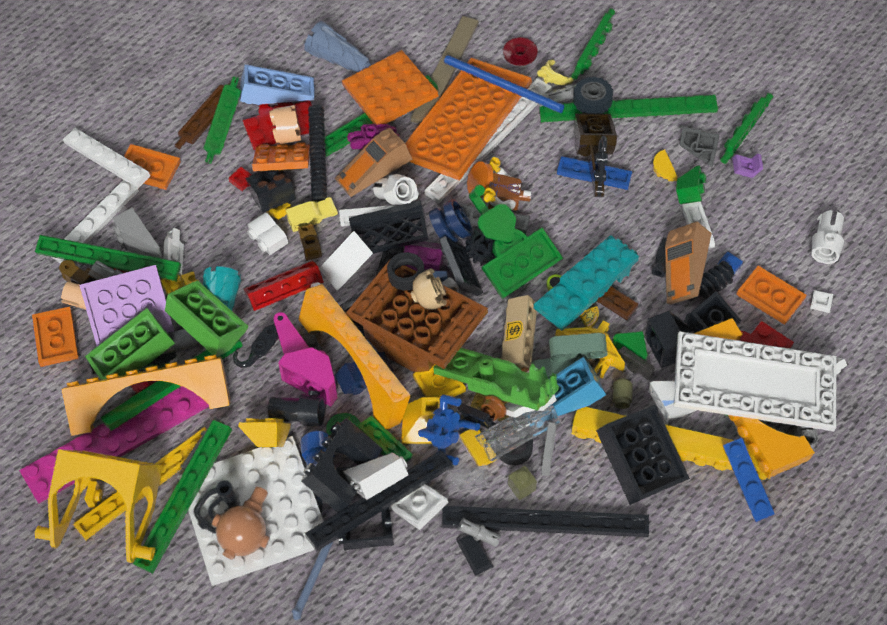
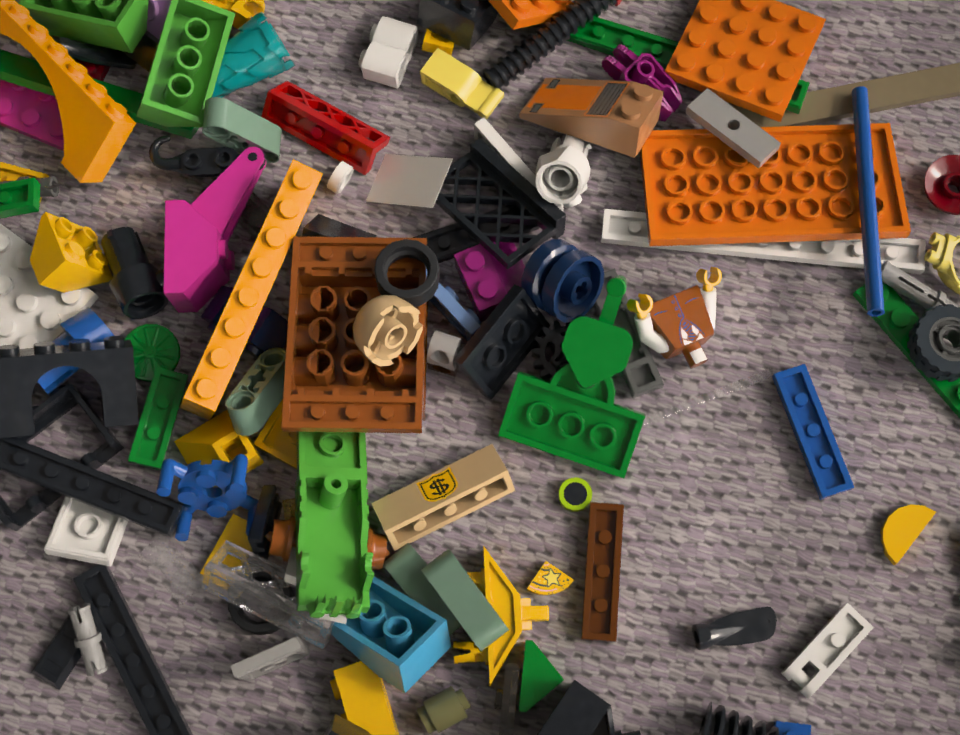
camera: 60 degrees right, 15 degrees up
(259, 314) = (240, 128): none -> sand green beam
(309, 242) = (413, 113): dark brown leg -> none
(376, 474) = (78, 443): white slope -> none
(410, 379) = (258, 393): none -> sand green beam
(427, 114) = (733, 128): none -> light grey tile
(480, 174) = (672, 274): orange tile -> none
(522, 482) = (202, 652): olive brick -> none
(587, 282) = (597, 542): teal piece -> none
(595, 136) = (869, 391): dark brown slope -> none
(685, 261) = (736, 673): medium nougat slope -> none
(691, 186) = (891, 596): green slope -> none

